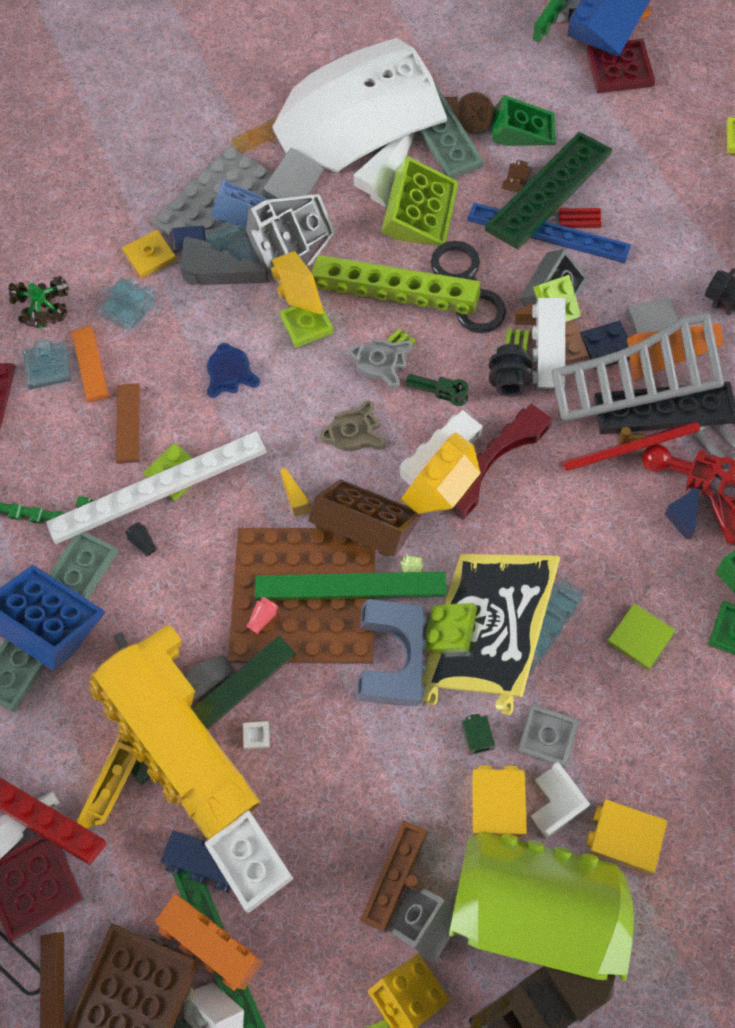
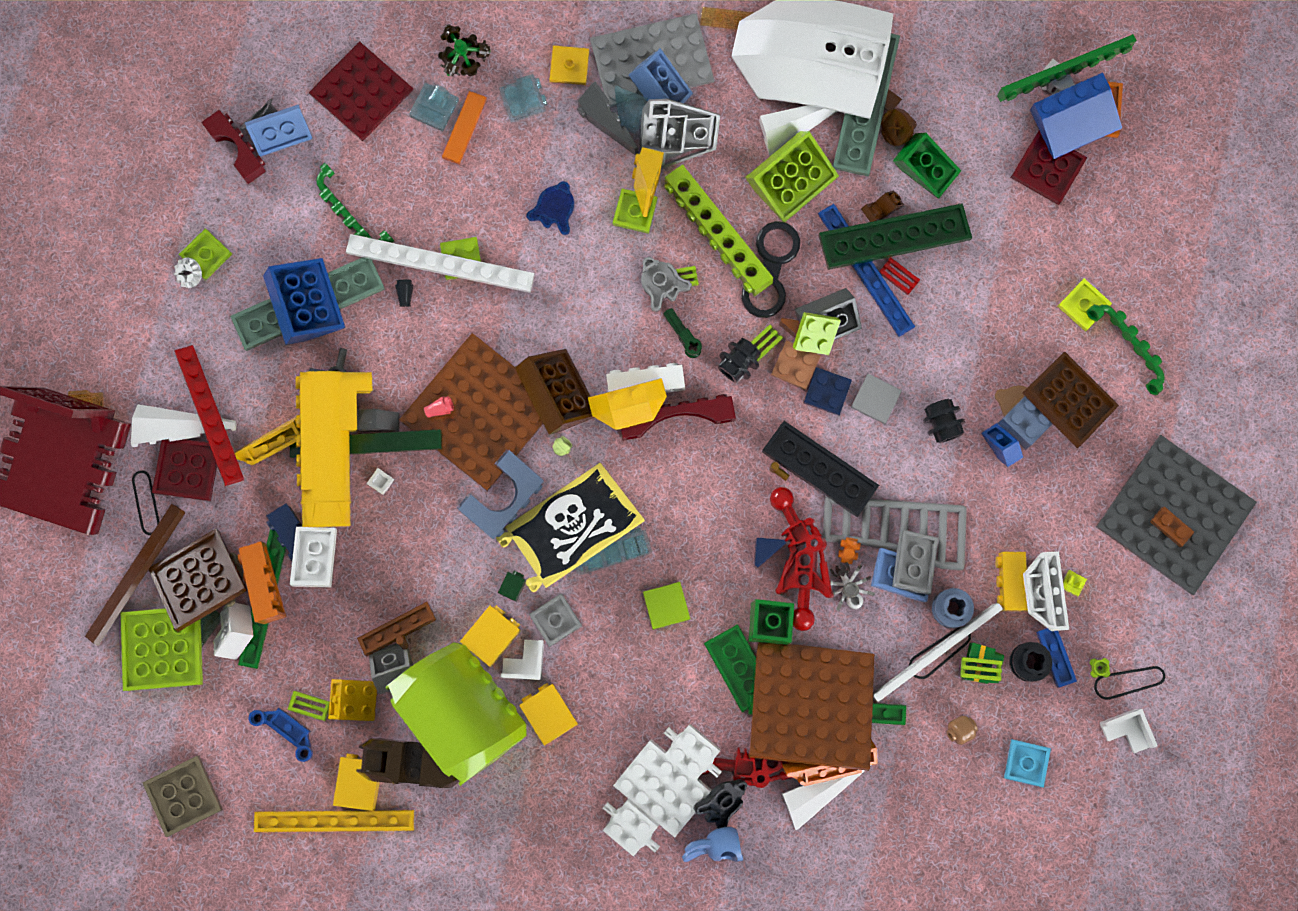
camera: 30 degrees right, 15 degrees up
(128, 423) = (457, 196): dark orange tile -> none
(178, 234) = (603, 76): dark blue slope -> none
(293, 176) = (717, 82): light grey tile -> none
(297, 499) = (524, 341): yellow slope -> none
(351, 586) = (510, 431): green tile -> none
(354, 429) = (603, 318): dark tan tile -> none
(450, 628) = (549, 507): lime plate -> none
(549, 340) = (780, 363): white brick -> none
(630, 446) = (769, 477): red tile -> none
(642, 348) = (834, 417): light grey bar -> none
(676, 345) = (862, 429): orange wedge -> none

